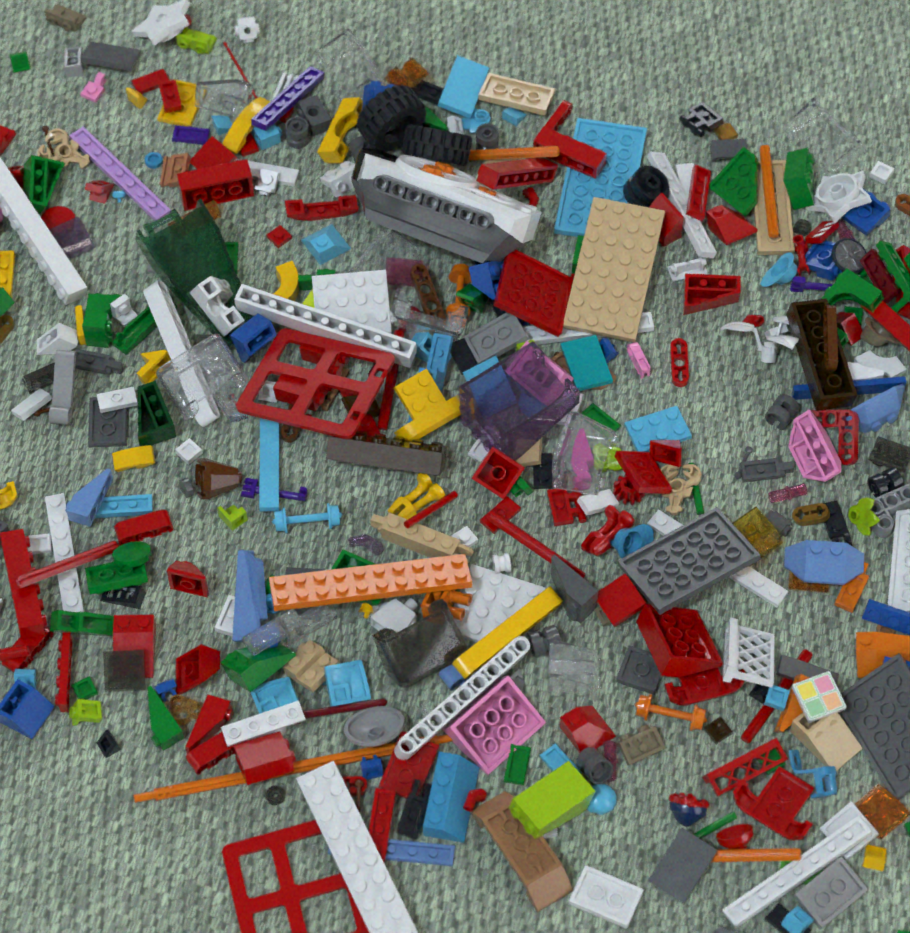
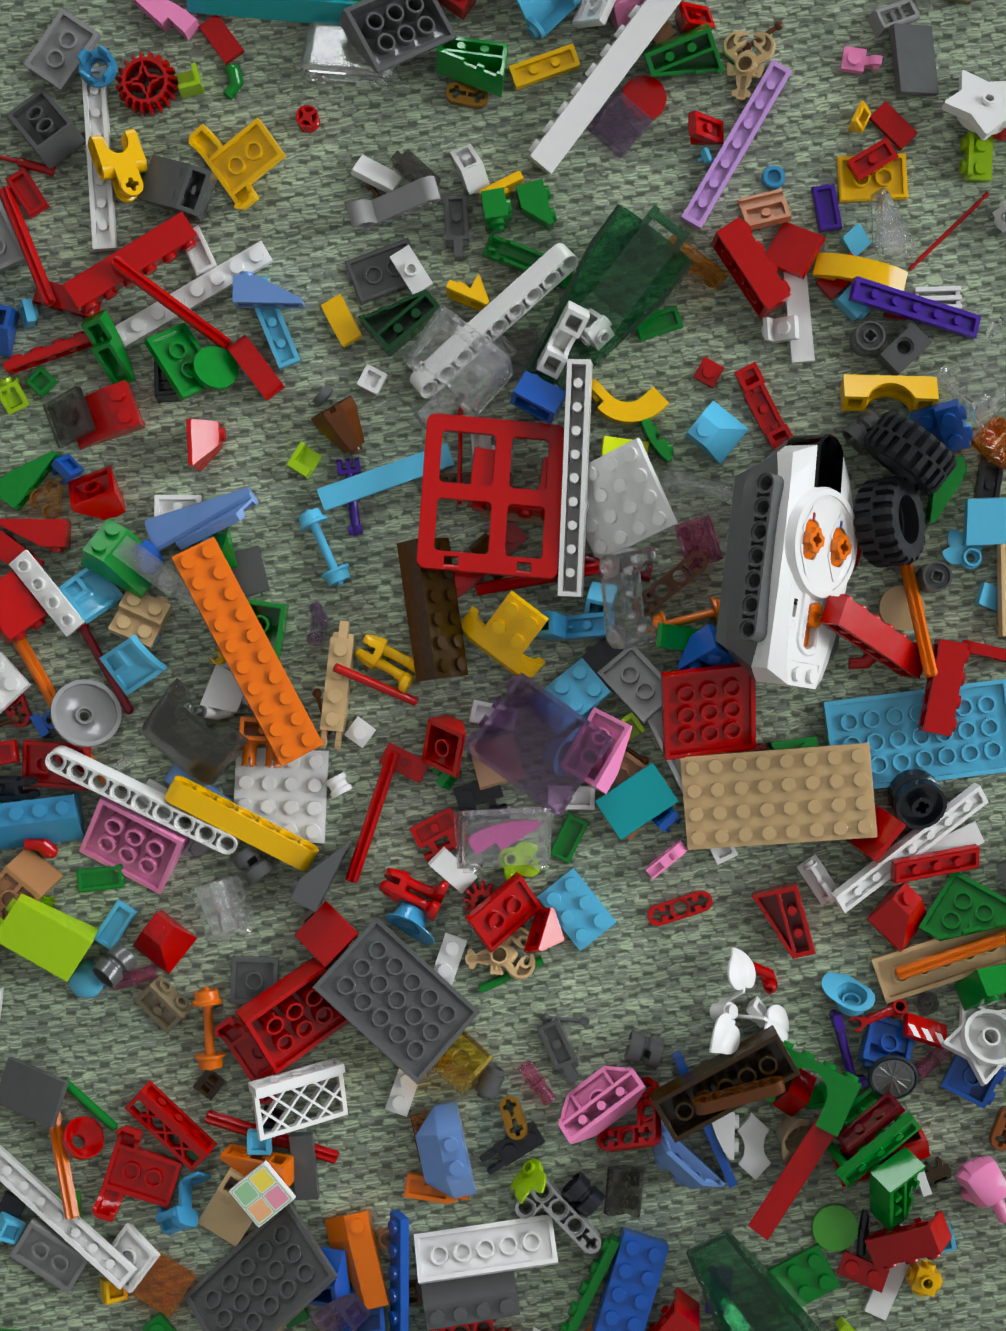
camera: 70 degrees right, 30 degrees up
(122, 310) = (535, 230): white bracket -> none
(339, 179) = (819, 416): white bracket -> none
(455, 125) = (942, 531): white plate -> none
(687, 808) = (101, 1078): dark blue hair -> none

